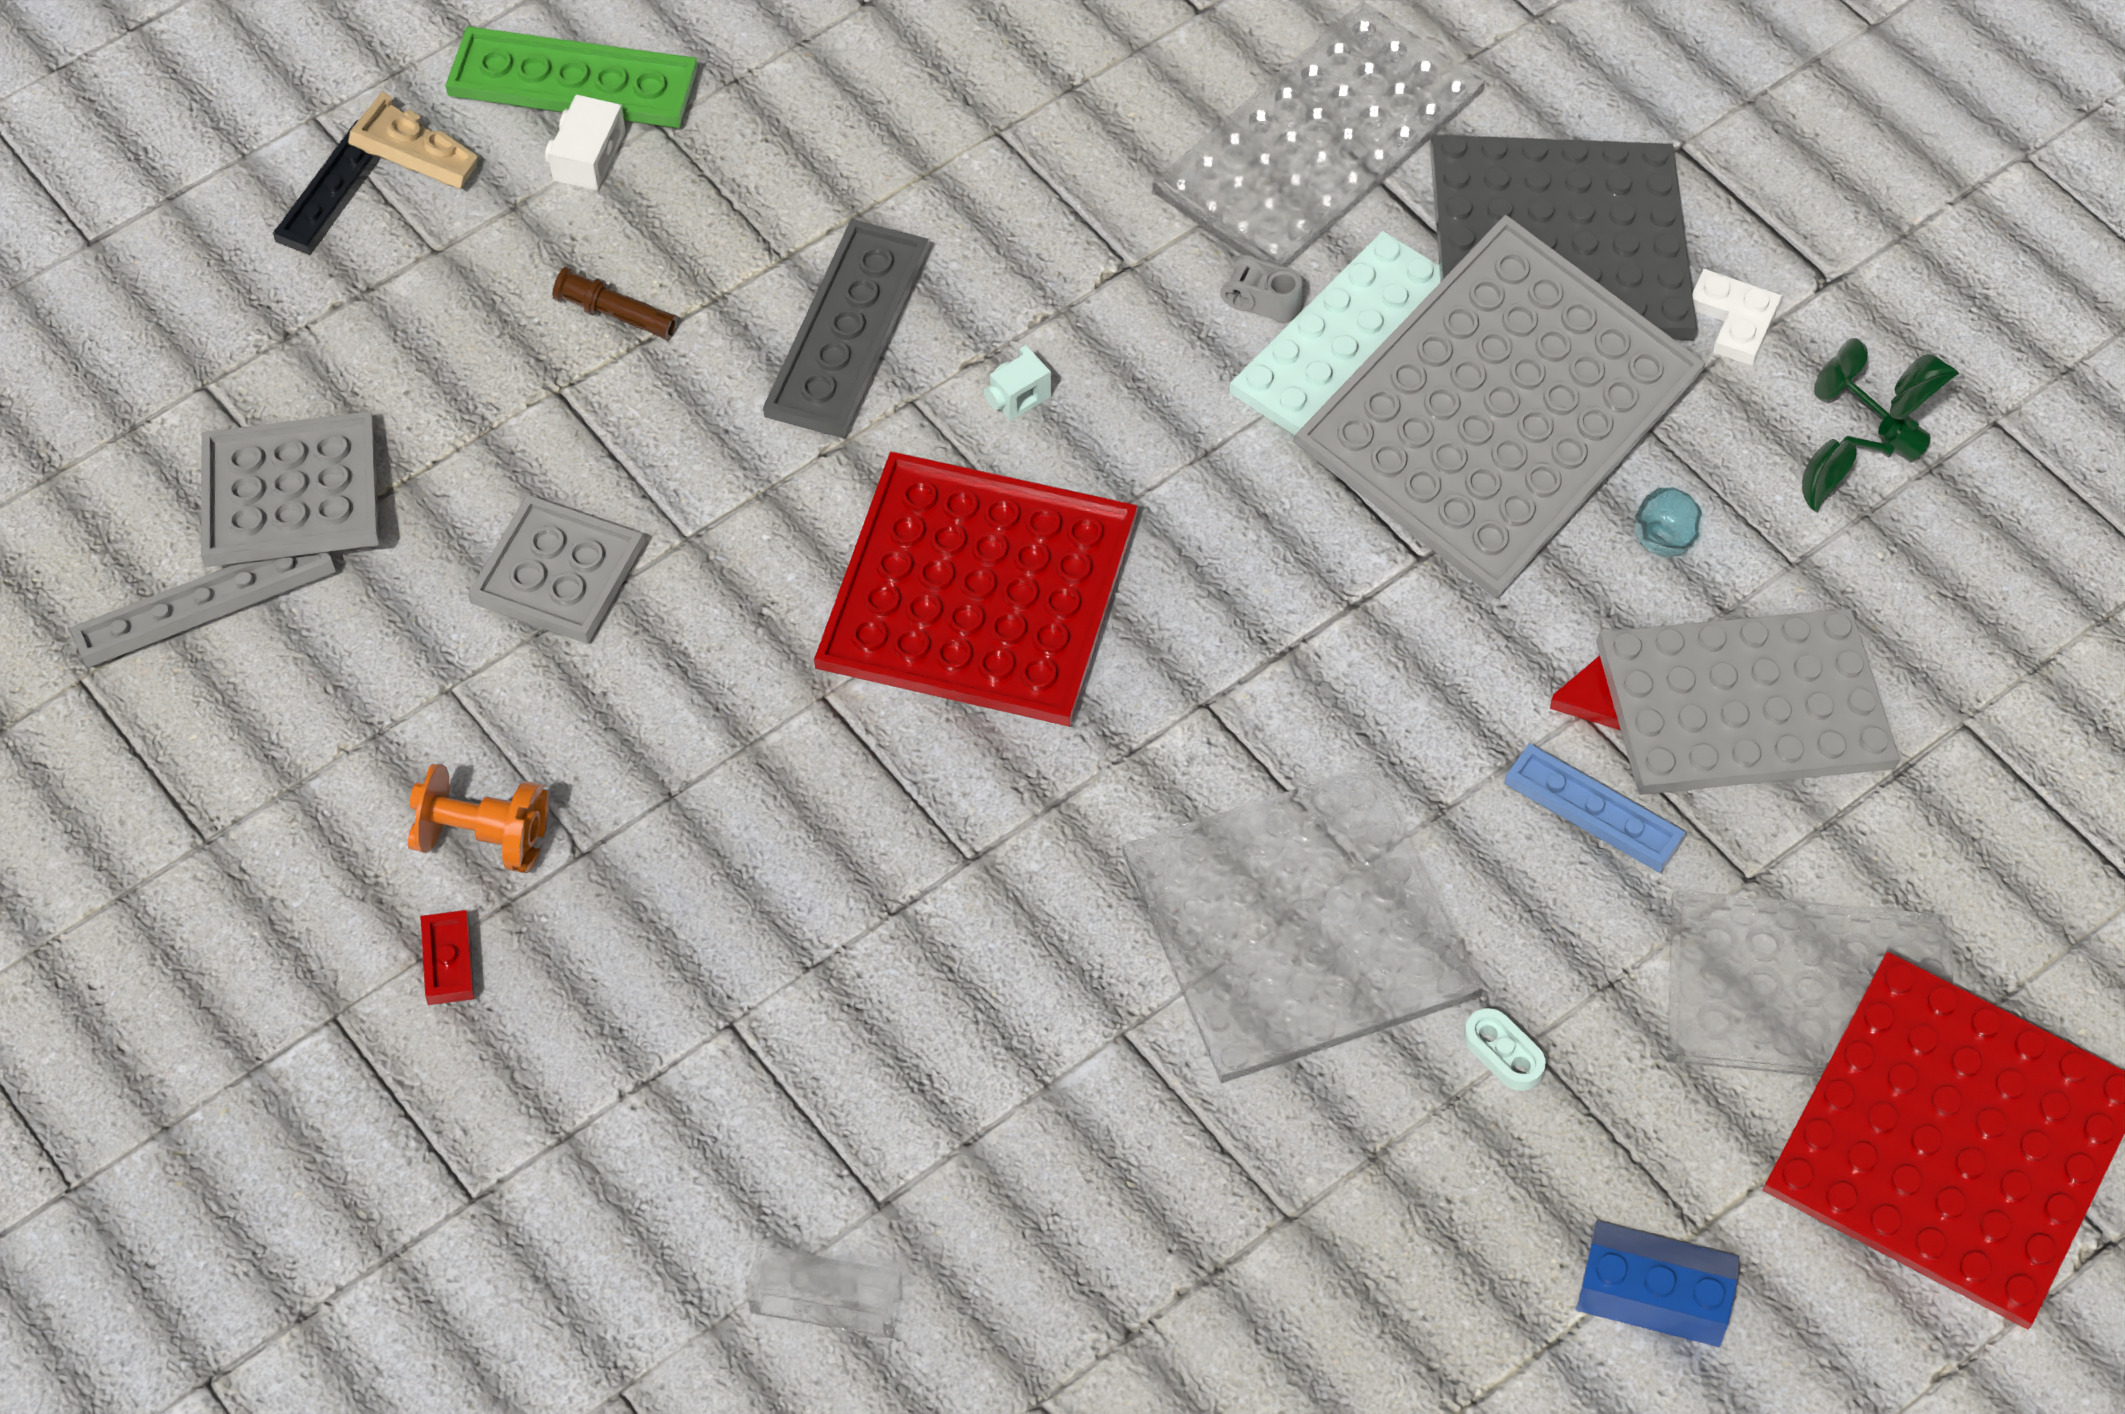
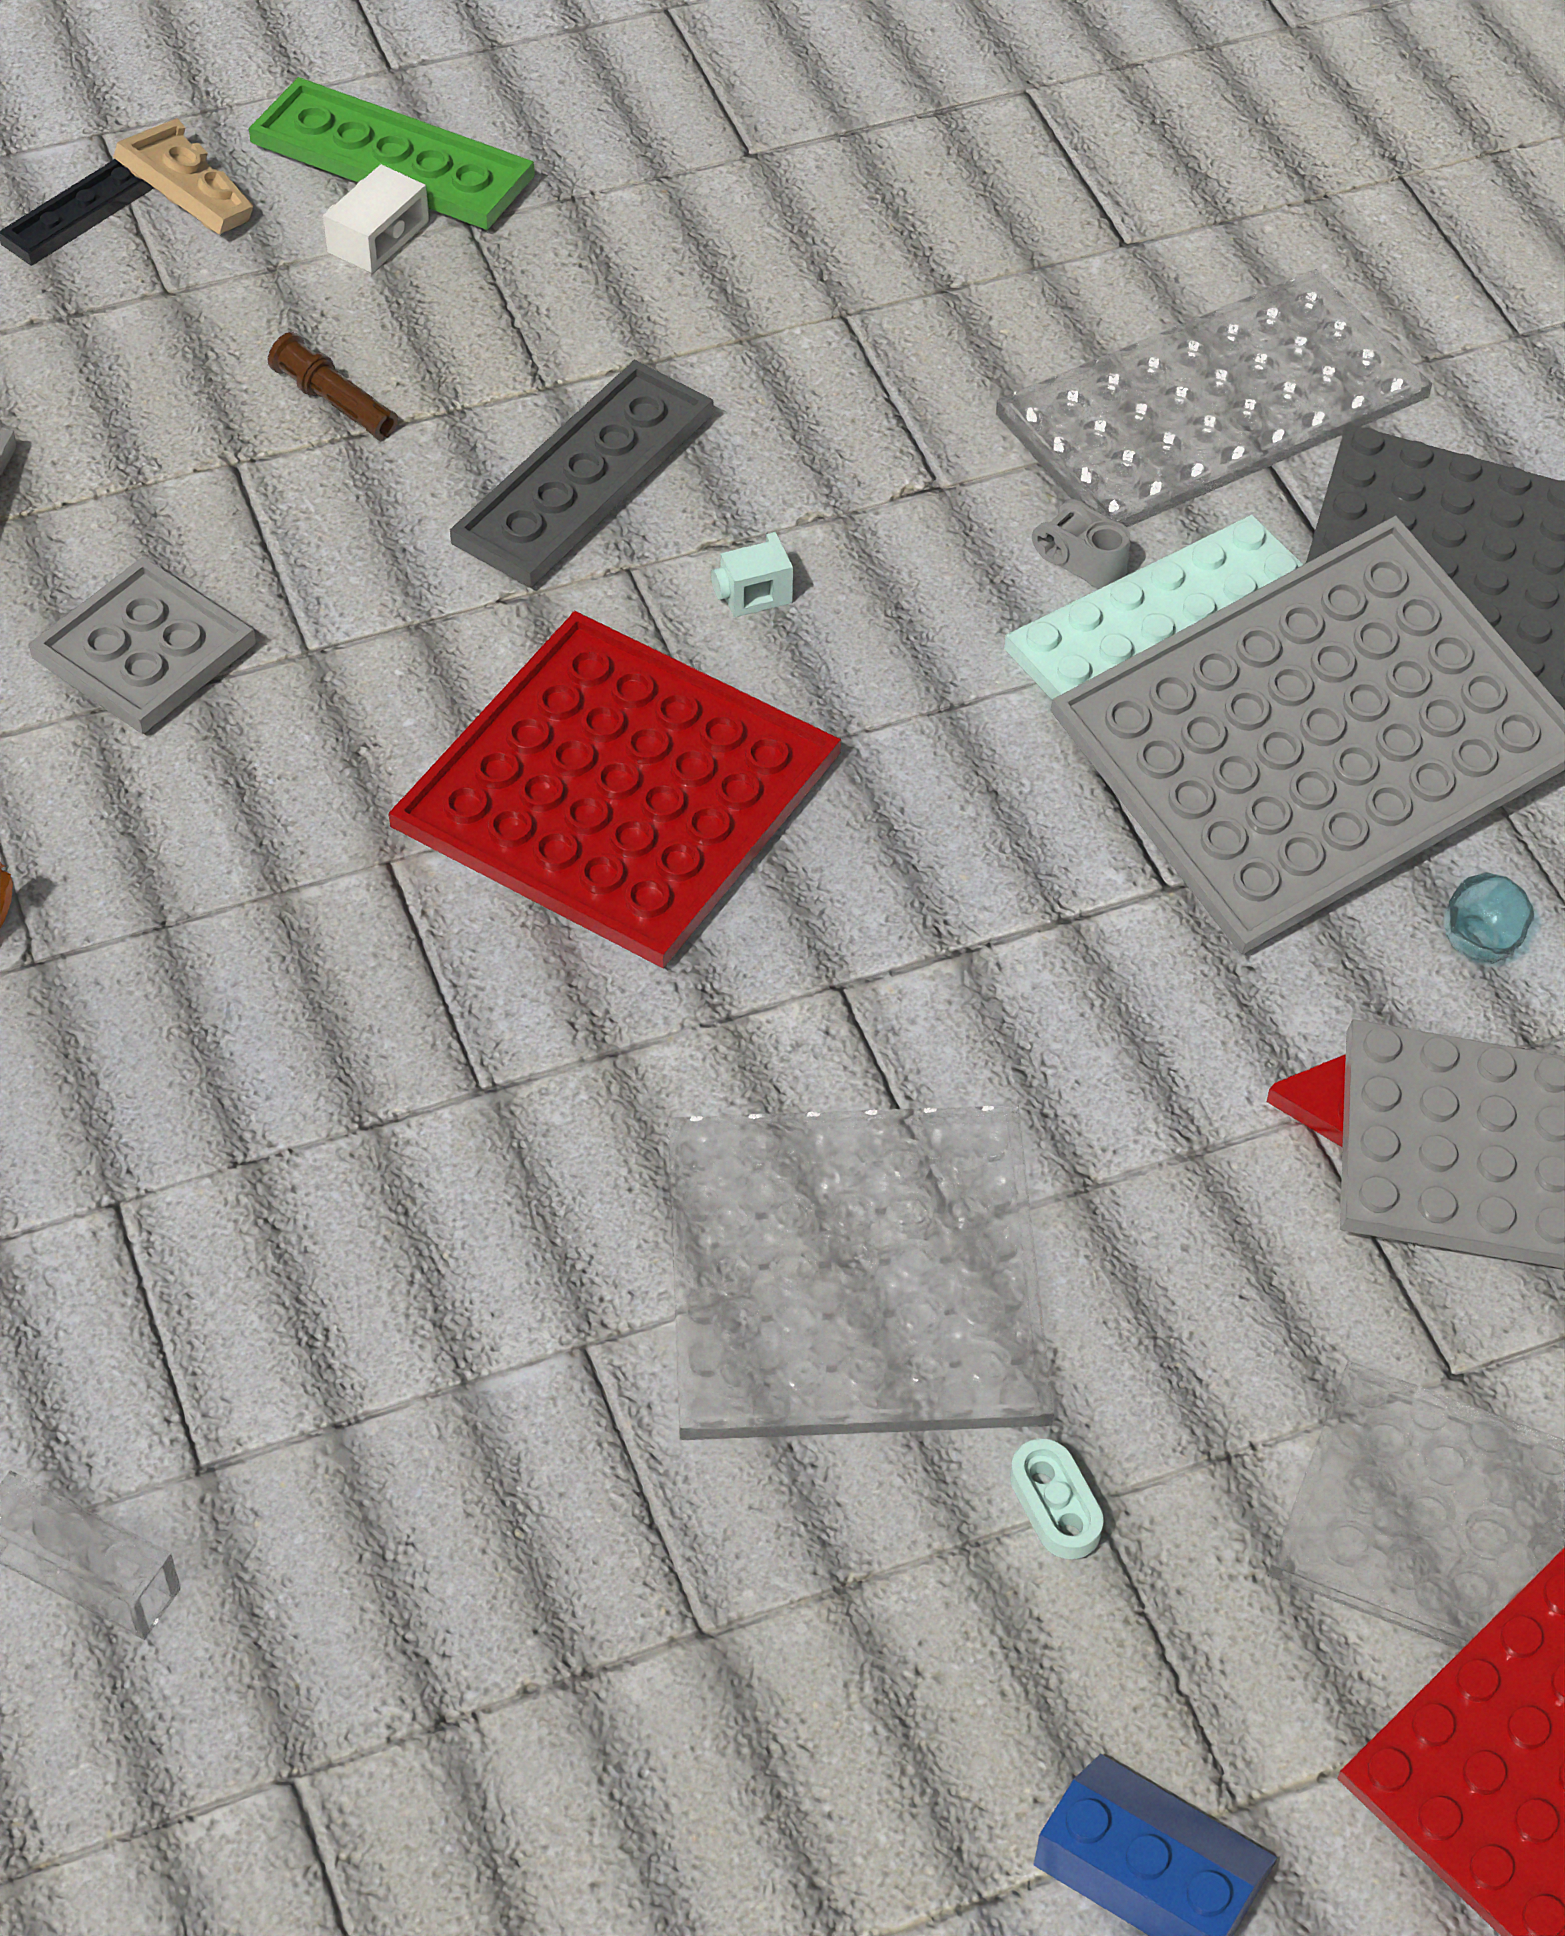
camera: 15 degrees right, 5 degrees down
(1595, 808) = (1280, 1234): medium blue plate -> none

